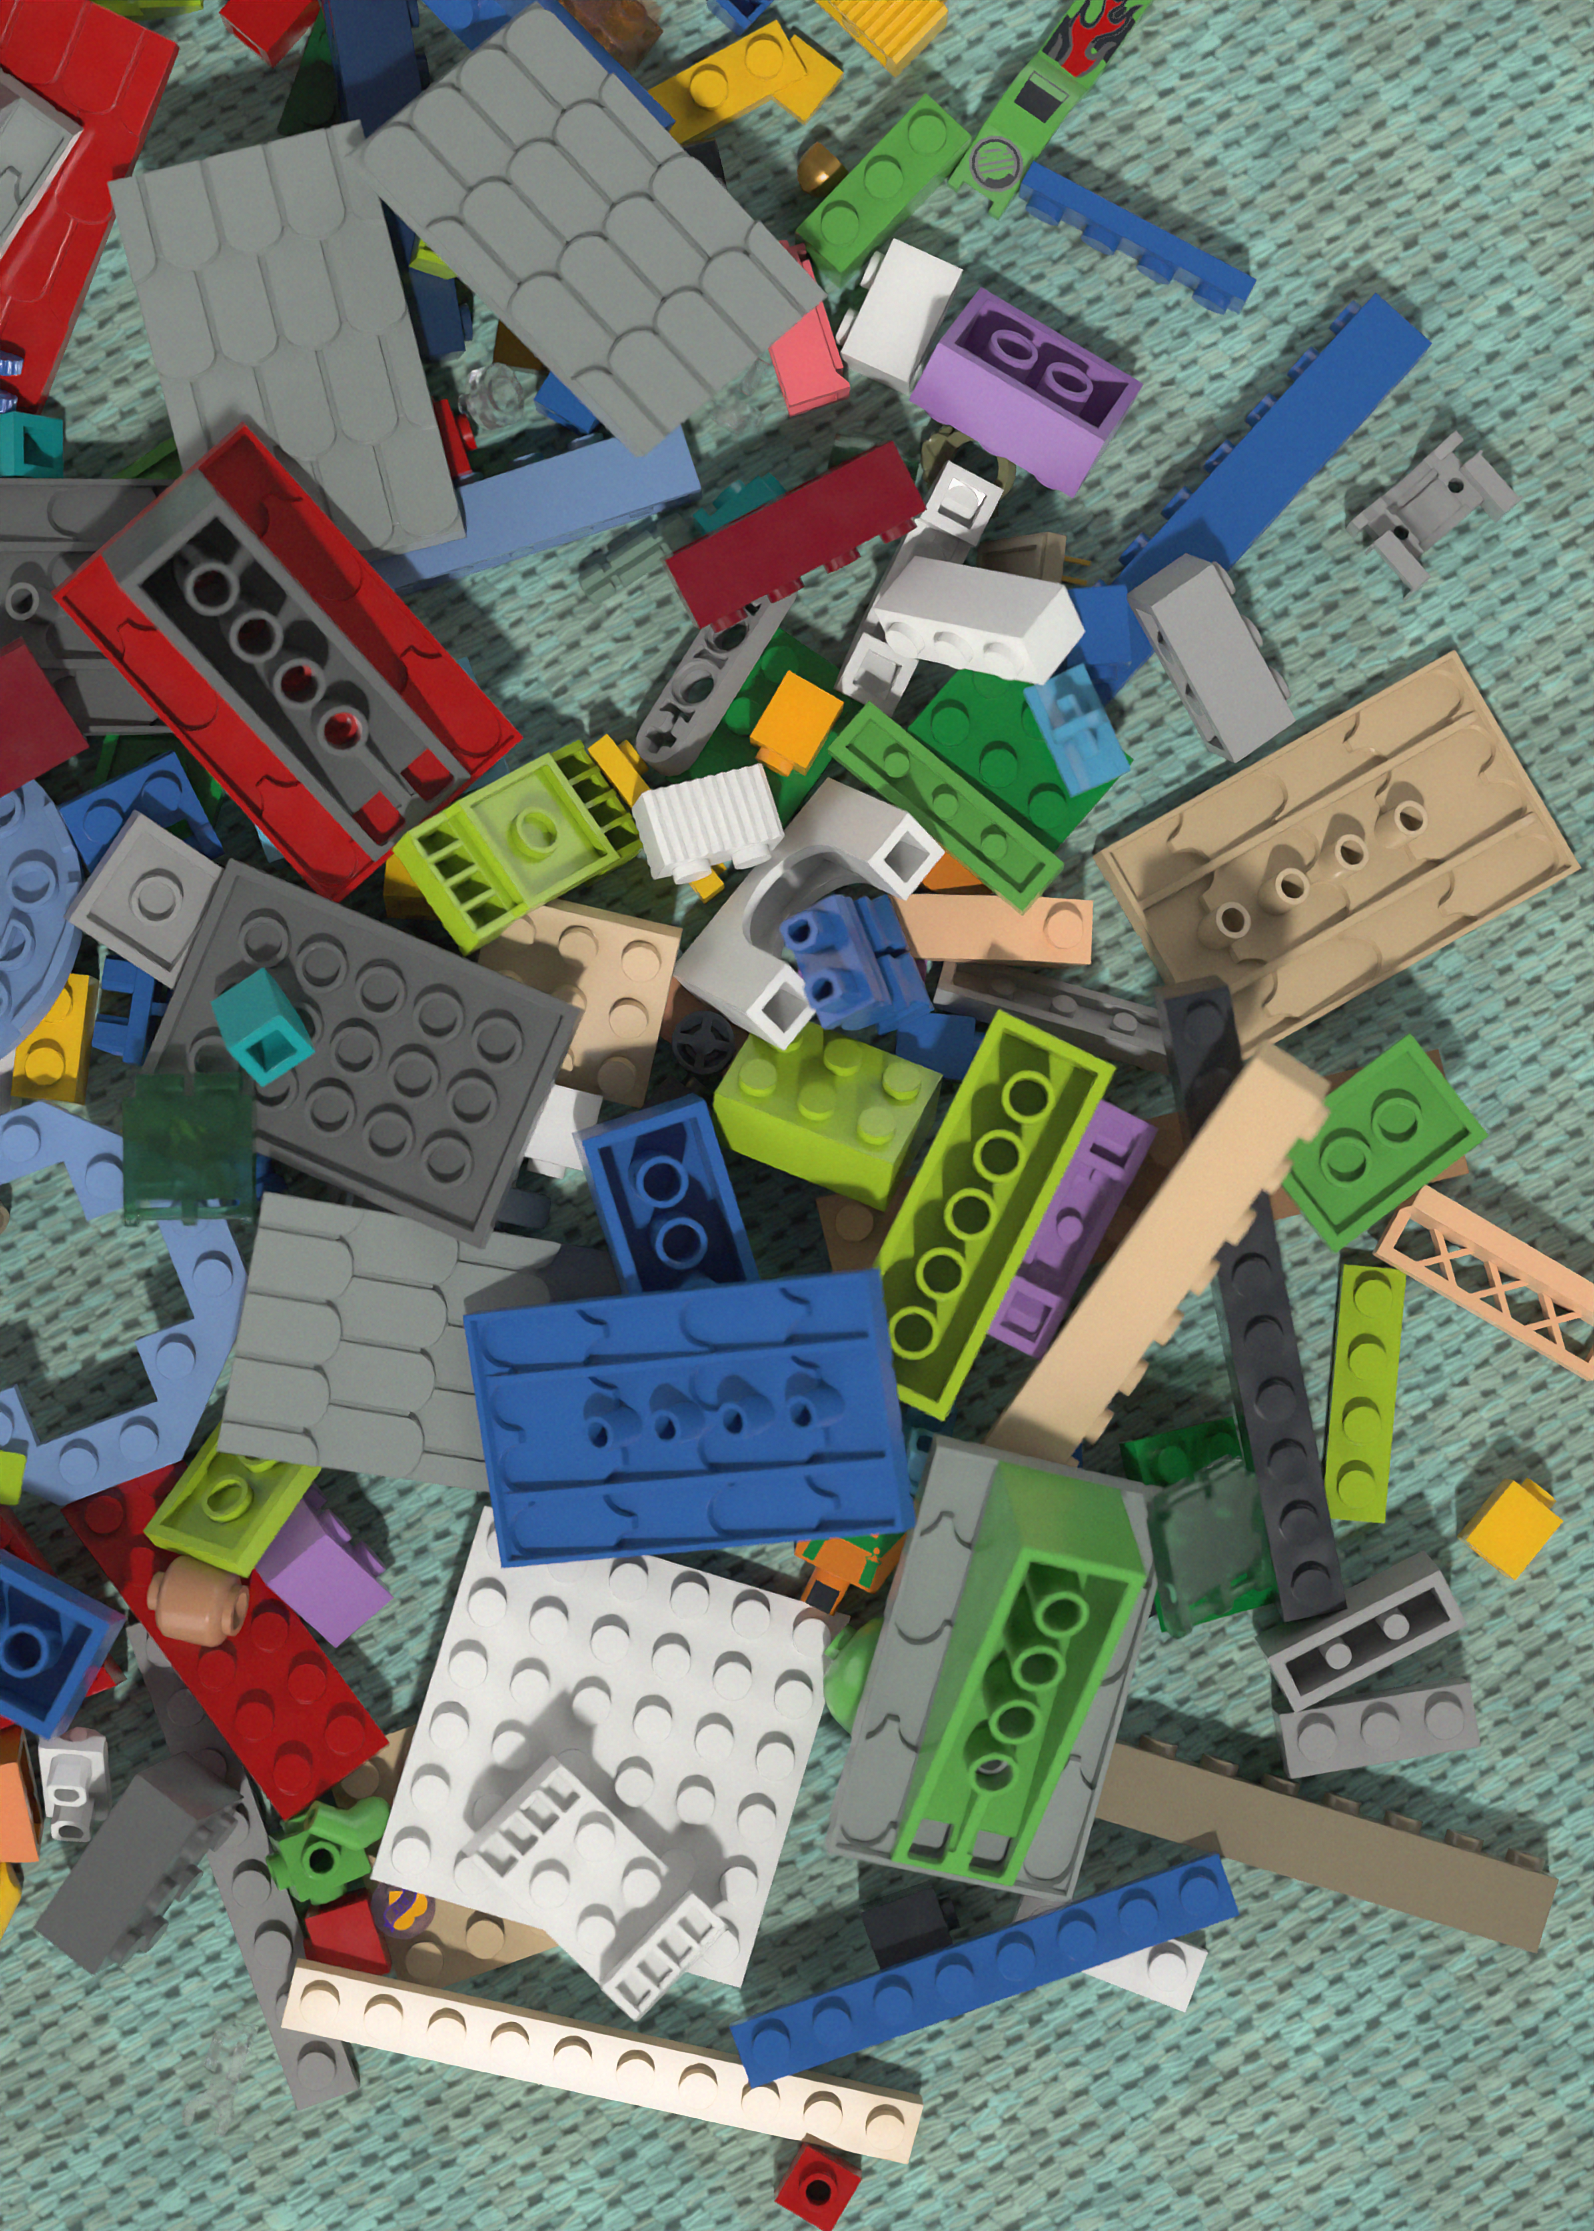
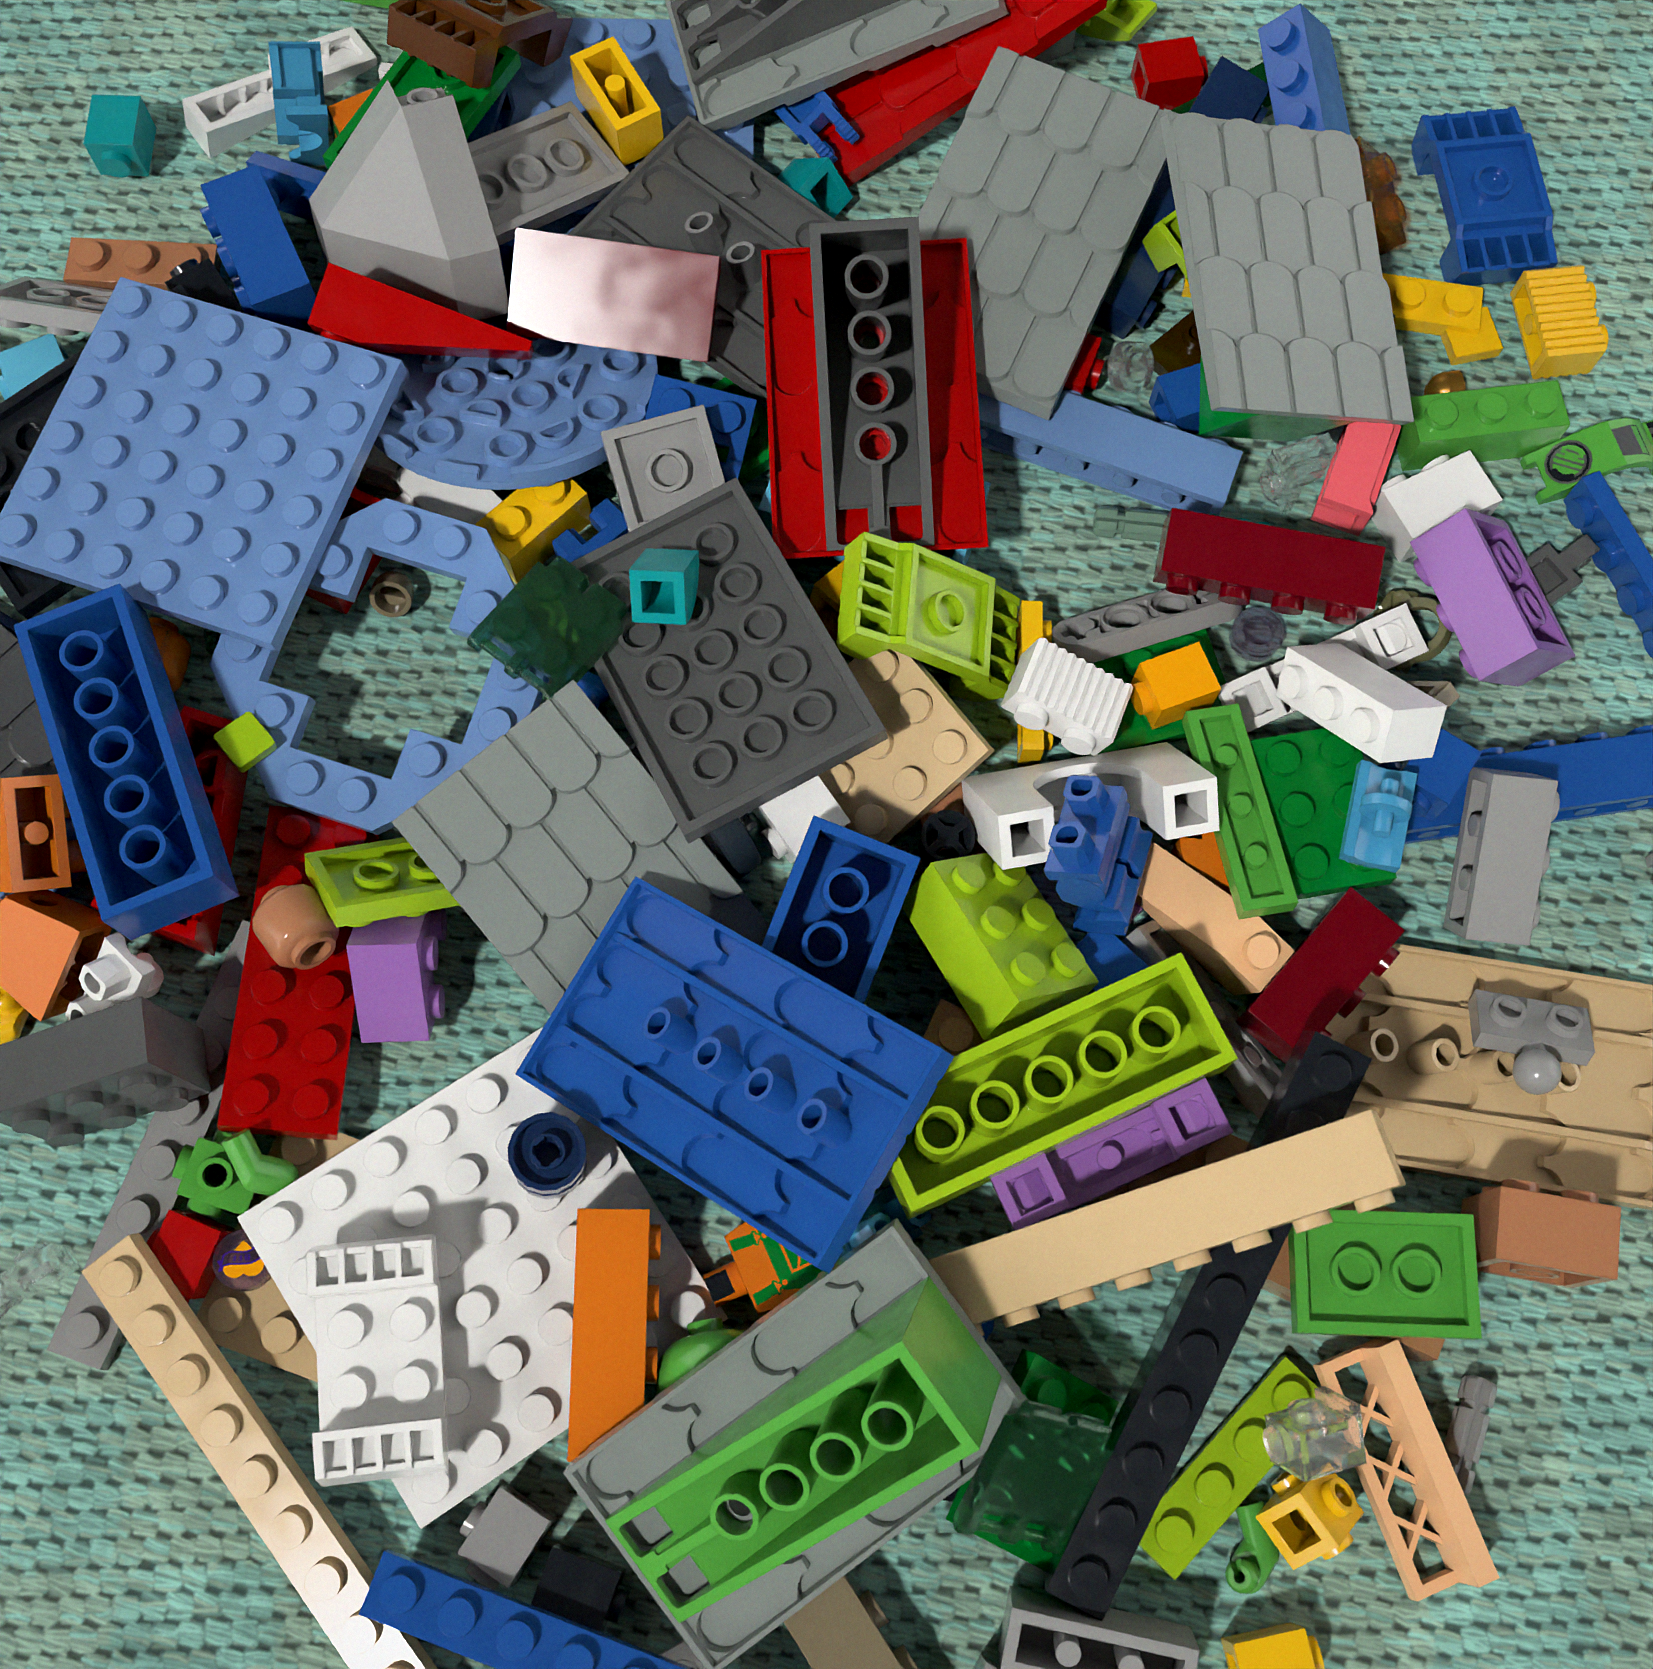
camera: 40 degrees right, 15 degrees down
(594, 1615) = (547, 1155): none -> dark blue wheel
(760, 1703) = (610, 1321): none -> orange brick
(811, 1938) = (503, 1537): none -> light grey brick
(829, 595) = (1256, 634): none -> tile
(1062, 300) = (1557, 571): none -> dark grey plate
(1135, 901) = (1323, 975): none -> dark red brick
(1354, 803) = (1535, 1030): none -> light grey plate
(1413, 1318) = (1316, 1435): none -> clear brick
(1436, 1446) = (1255, 1555): none -> bright green arm
(1455, 1383) = (1310, 1517): none -> yellow brick
(1484, 994) = (1545, 1236): none -> nougat brick
(1540, 1204) = (1469, 1427): none -> light grey axle

